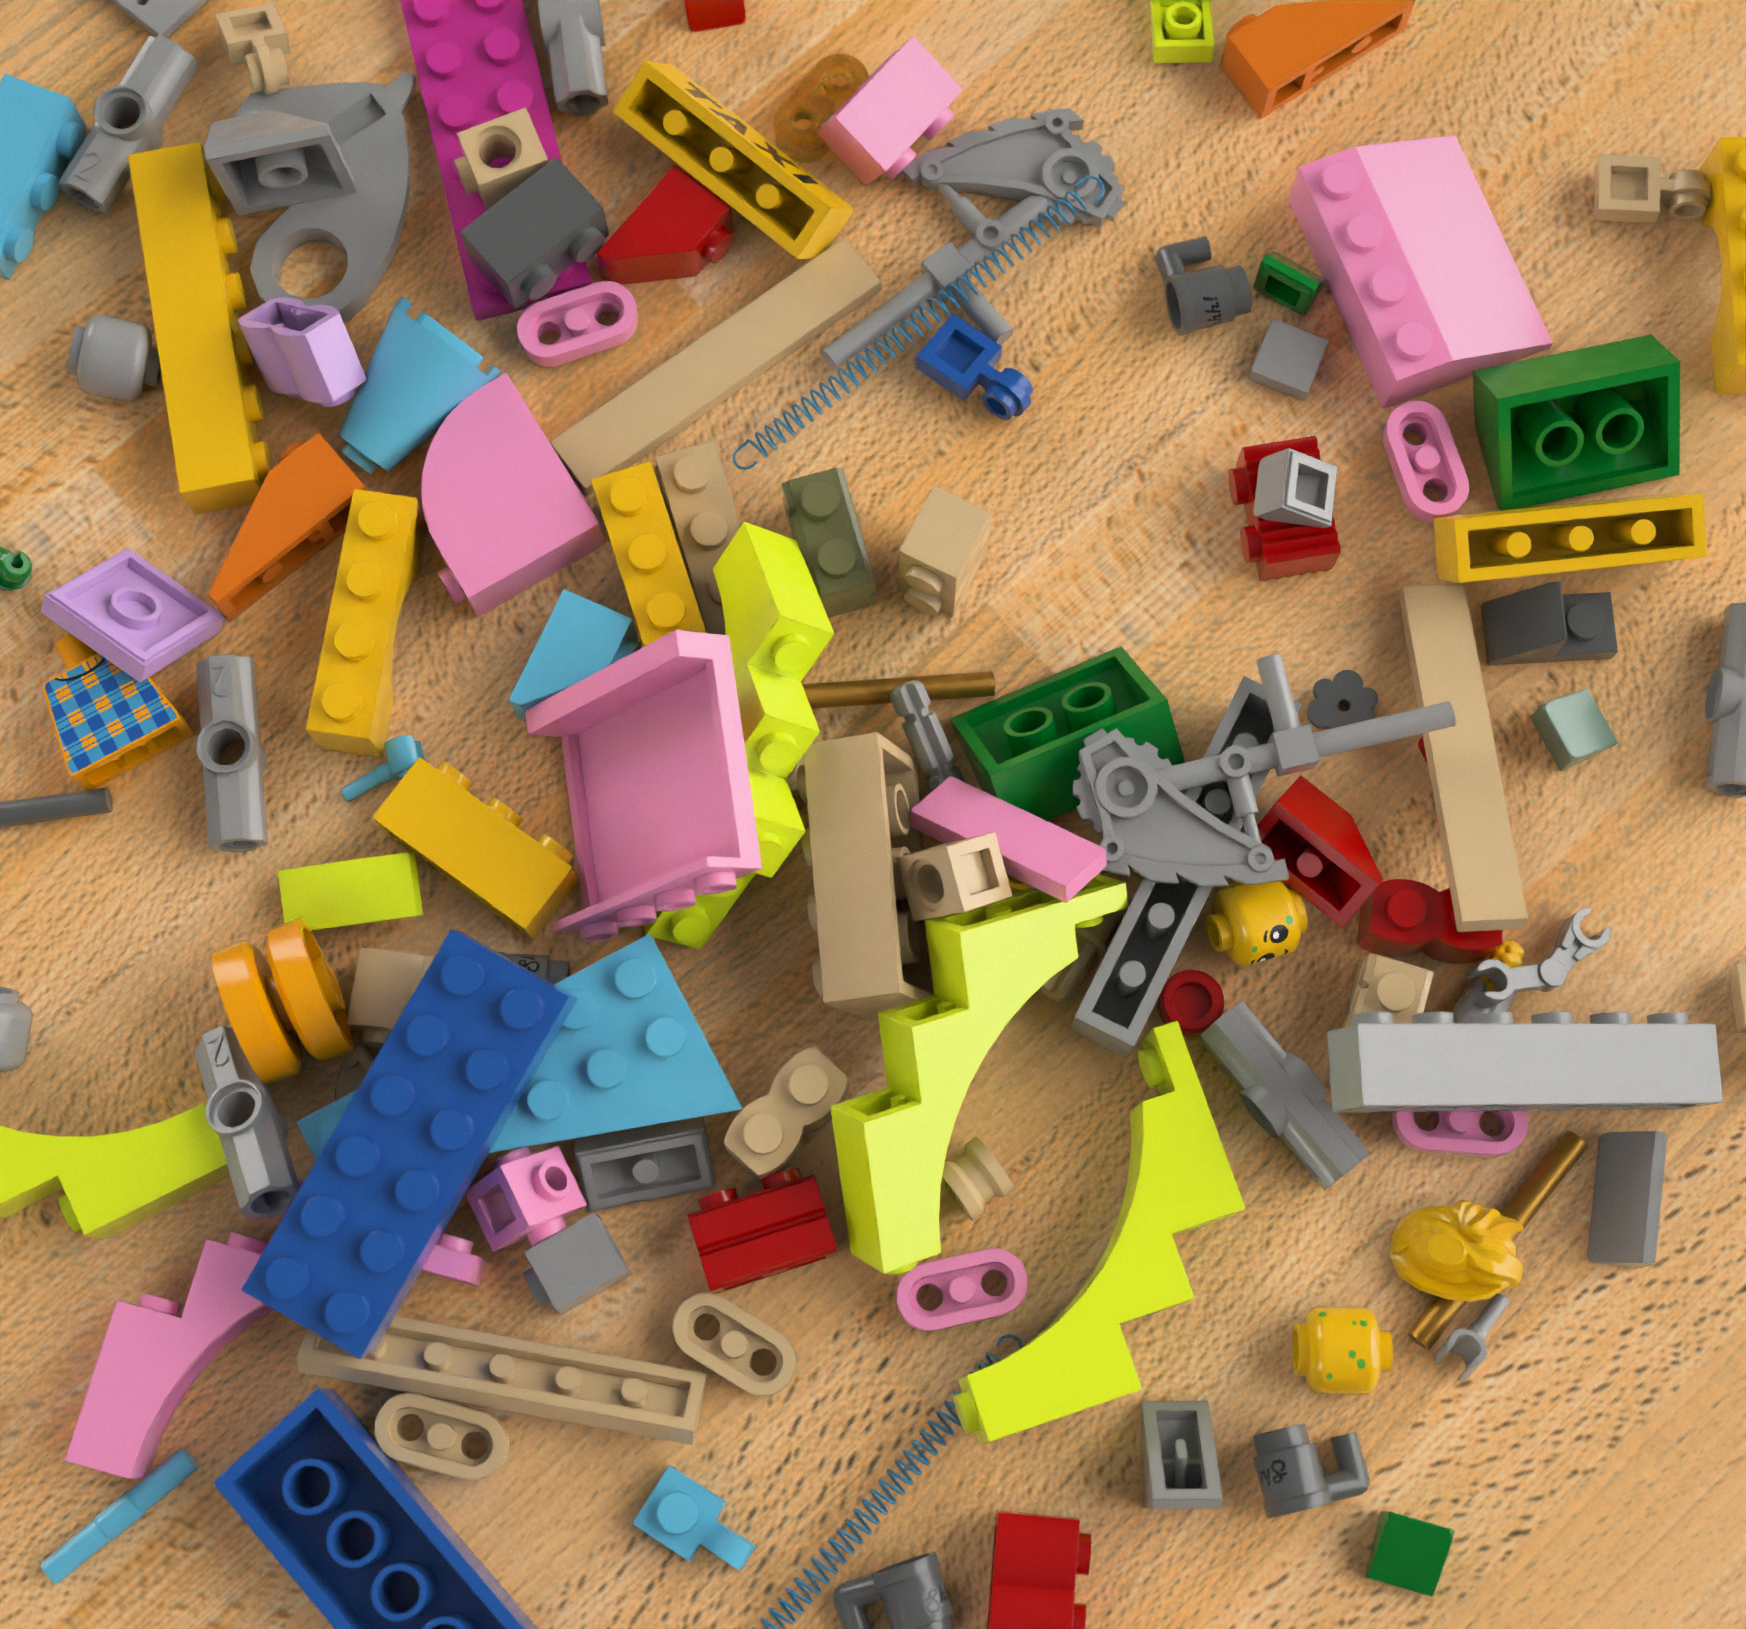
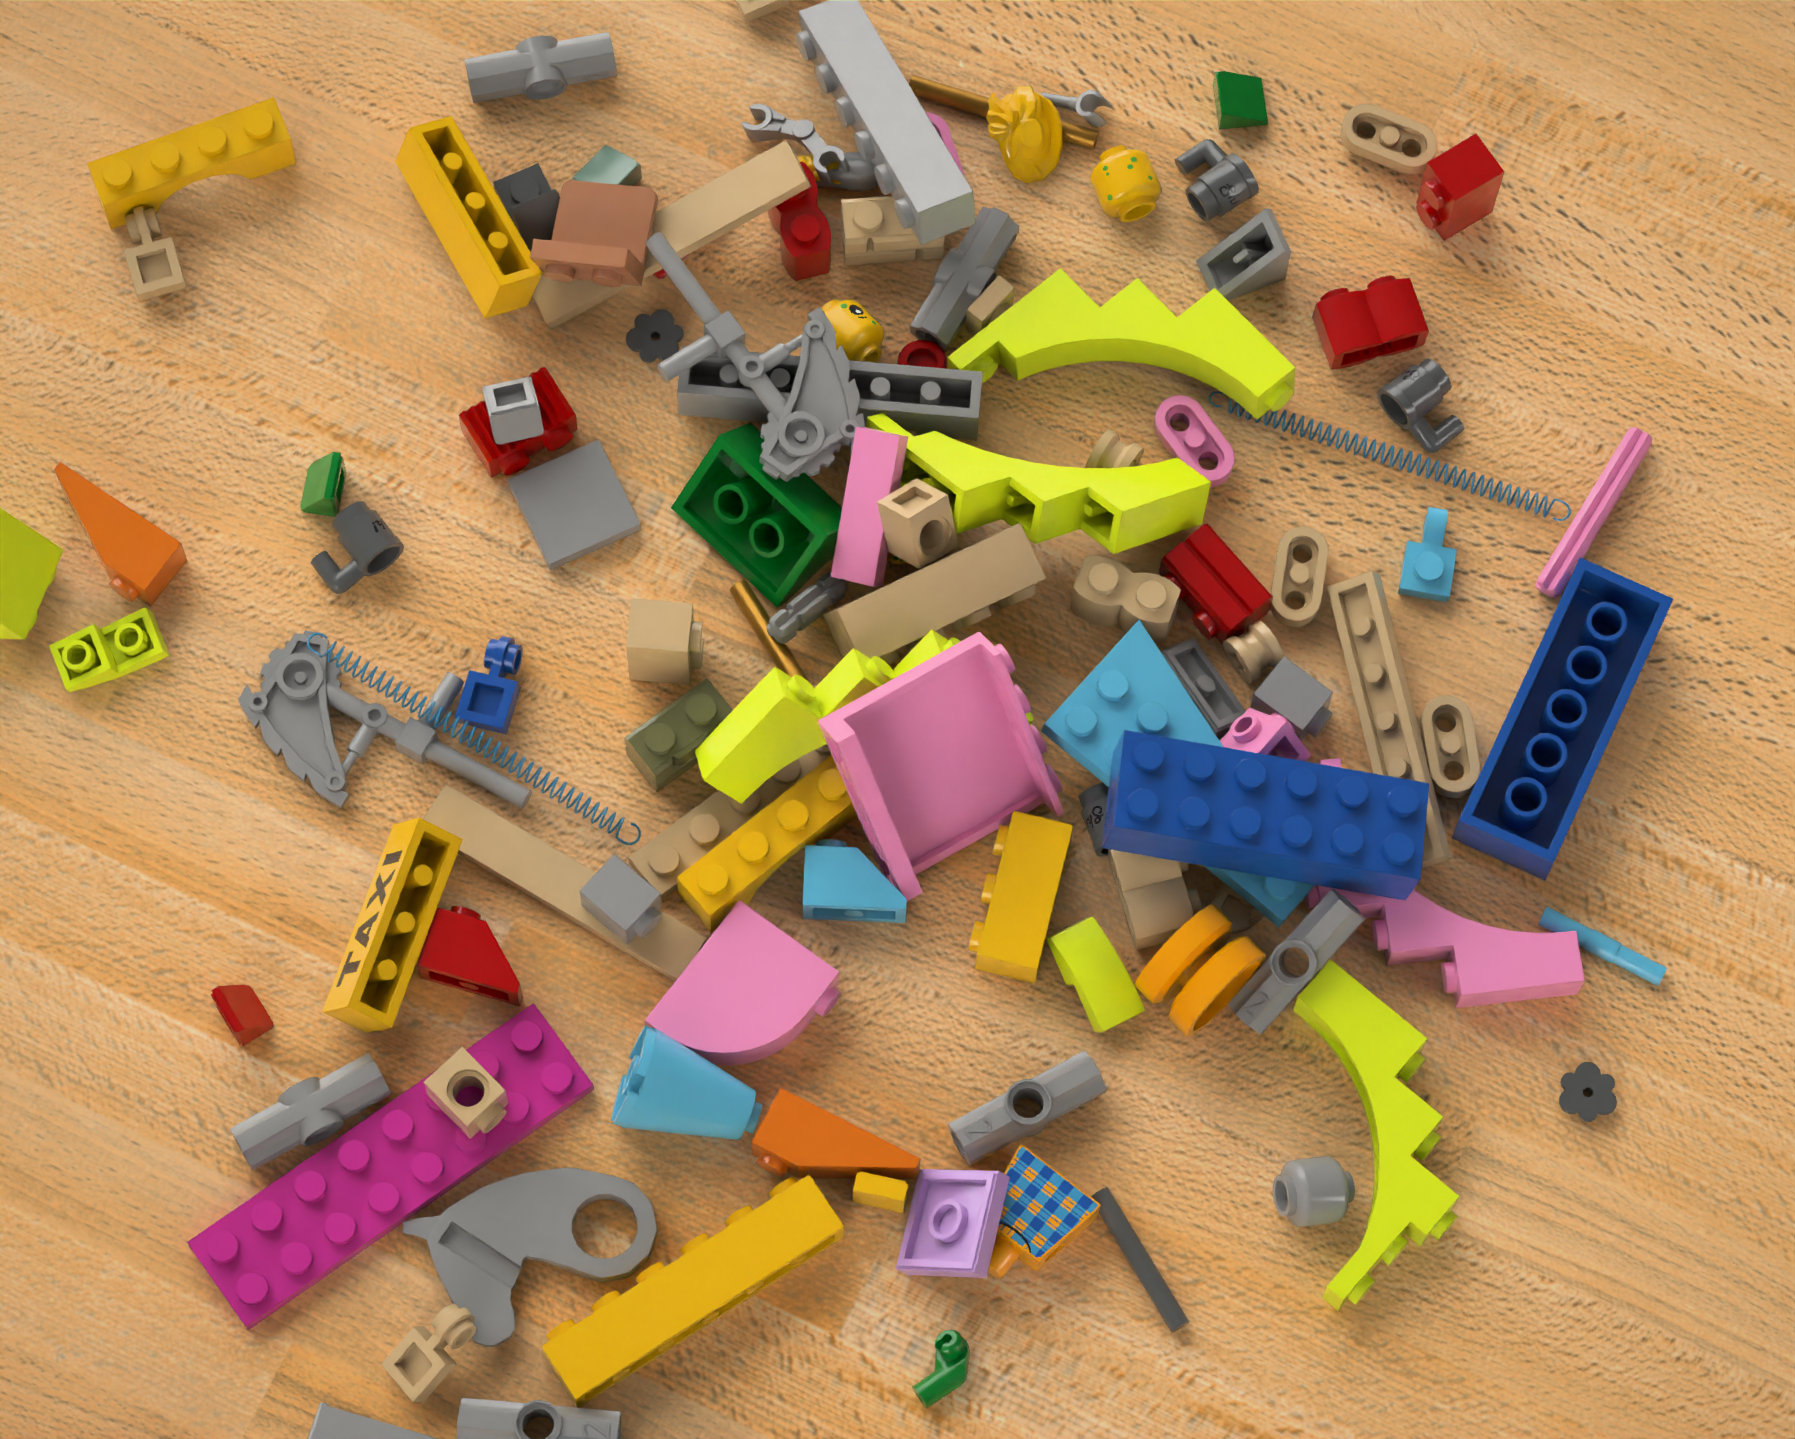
camera: 115 degrees left, 5 degrees down
(113, 358) = (747, 1344): light grey head -> none
(207, 556) = (880, 1192): none -> yellow tile
(275, 160) = (536, 1274): light grey slope -> none
(303, 351) = (690, 1179): lavender brick -> none
(354, 670) = (926, 1035): yellow arch -> none
(400, 754) = (978, 984): medium azure hand -> none
(536, 234) = (521, 1041): dark grey brick -> none
(575, 319) = (573, 1001): bright pink plate -> none
(655, 401) = (622, 900): none -> light grey brick
(659, 1244) = (1253, 651): none -> tan wheel
(815, 101) = (305, 893): clear yellow plate -> none
(889, 113) = (302, 824): bright pink brick -> none
(1165, 539) = (574, 504): none -> light grey tile
(1231, 1109) = (989, 305): none -> tan plate
(1288, 359) = (391, 466): light grey tile -> none
(1321, 851) = (781, 302): red slope -> none
(1415, 265) = (279, 398): bright pink slope -> none
(1426, 465) = (437, 340): bright pink plate -> none
(1484, 662) = (598, 234): none -> nougat bracket
(1579, 421) = (364, 244): green slope -> none
(1627, 1199) = (940, 36): light grey slope -> none

